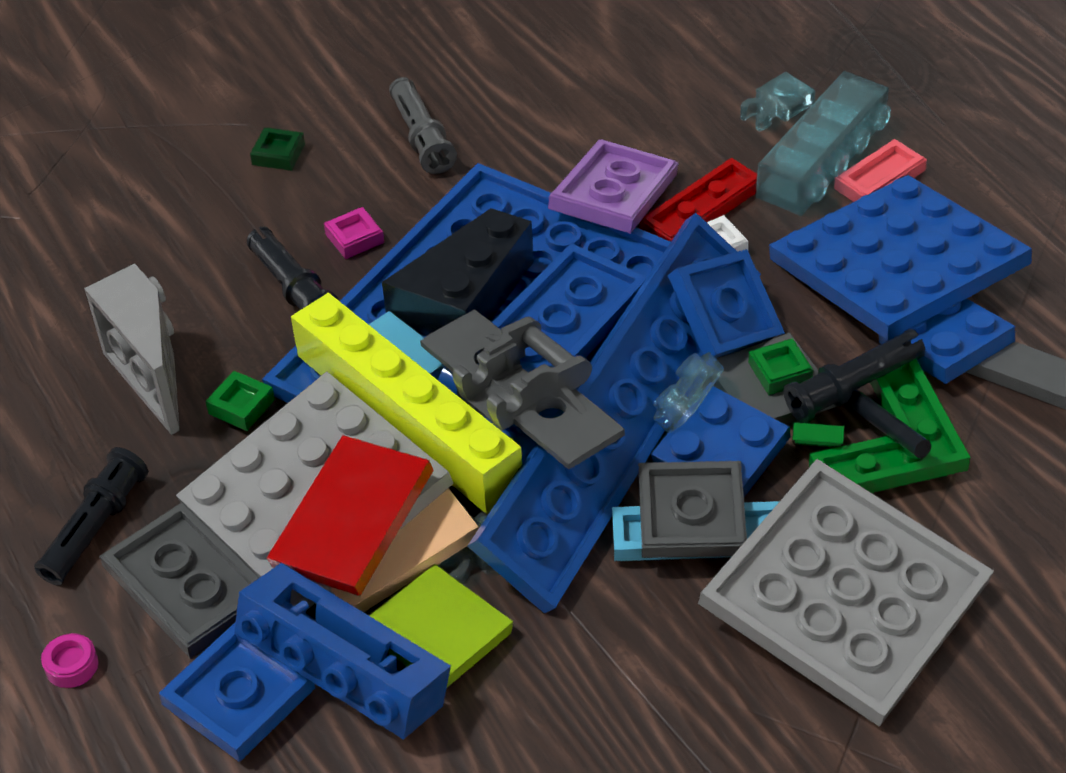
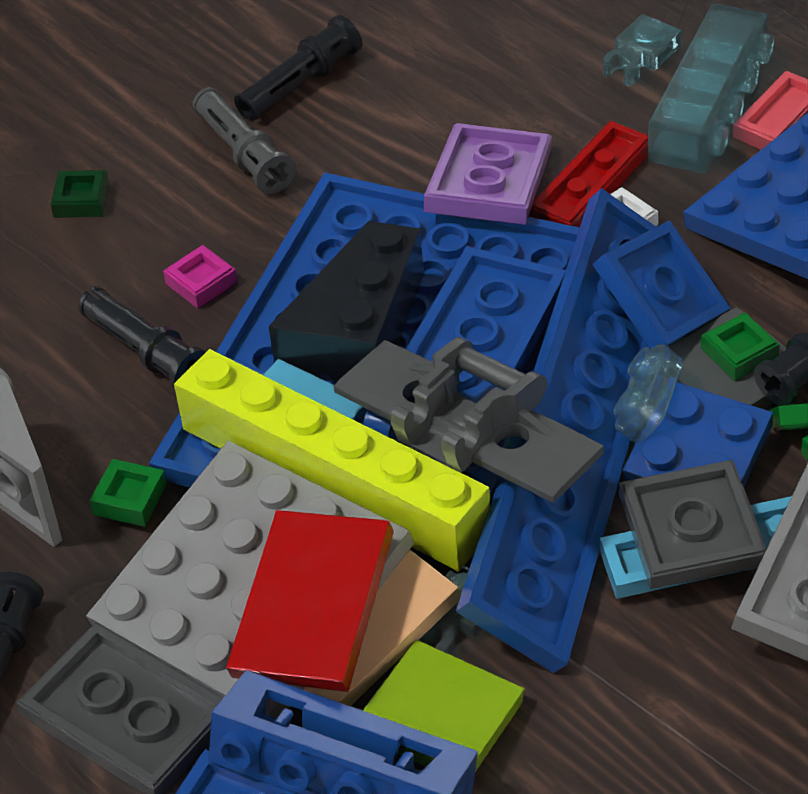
camera: 10 degrees left, 0 degrees up
(500, 66) = (313, 57): none -> black pin

